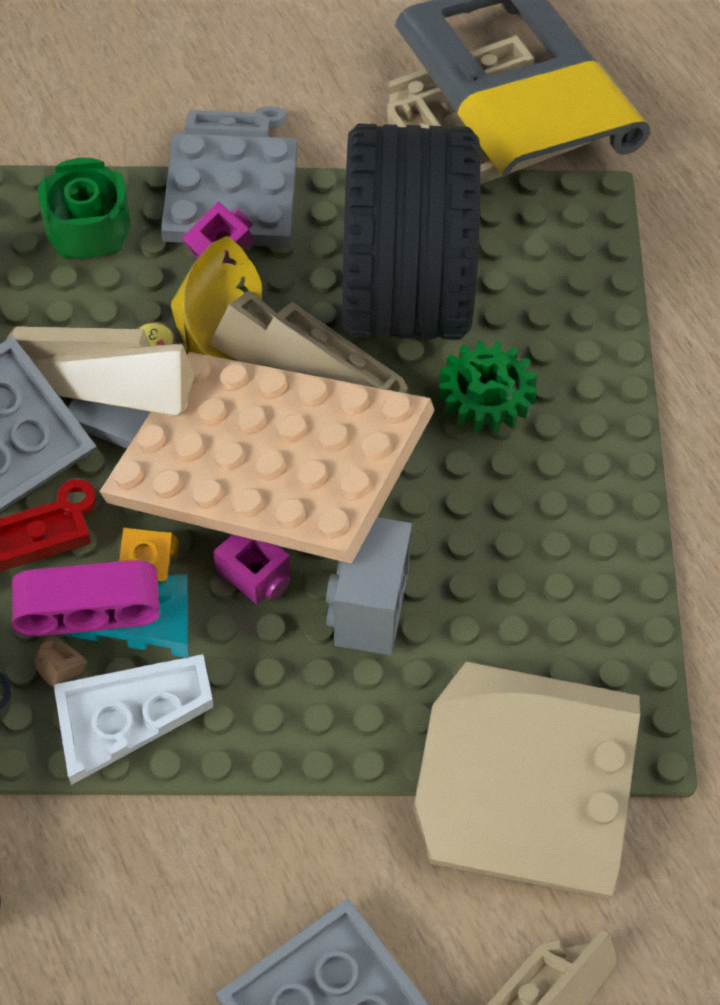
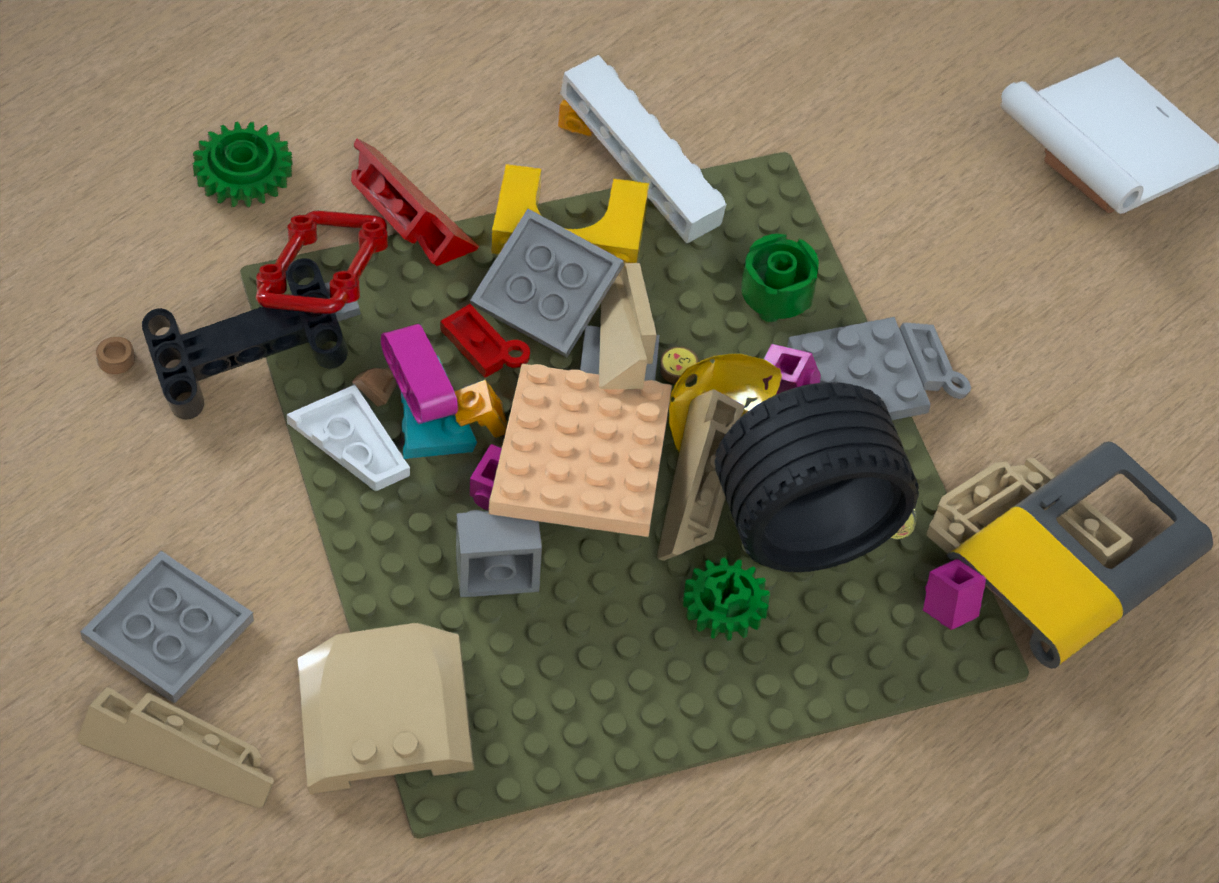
camera: 70 degrees right, 5 degrees down
(548, 185) = (954, 594): none -> dark pink brick

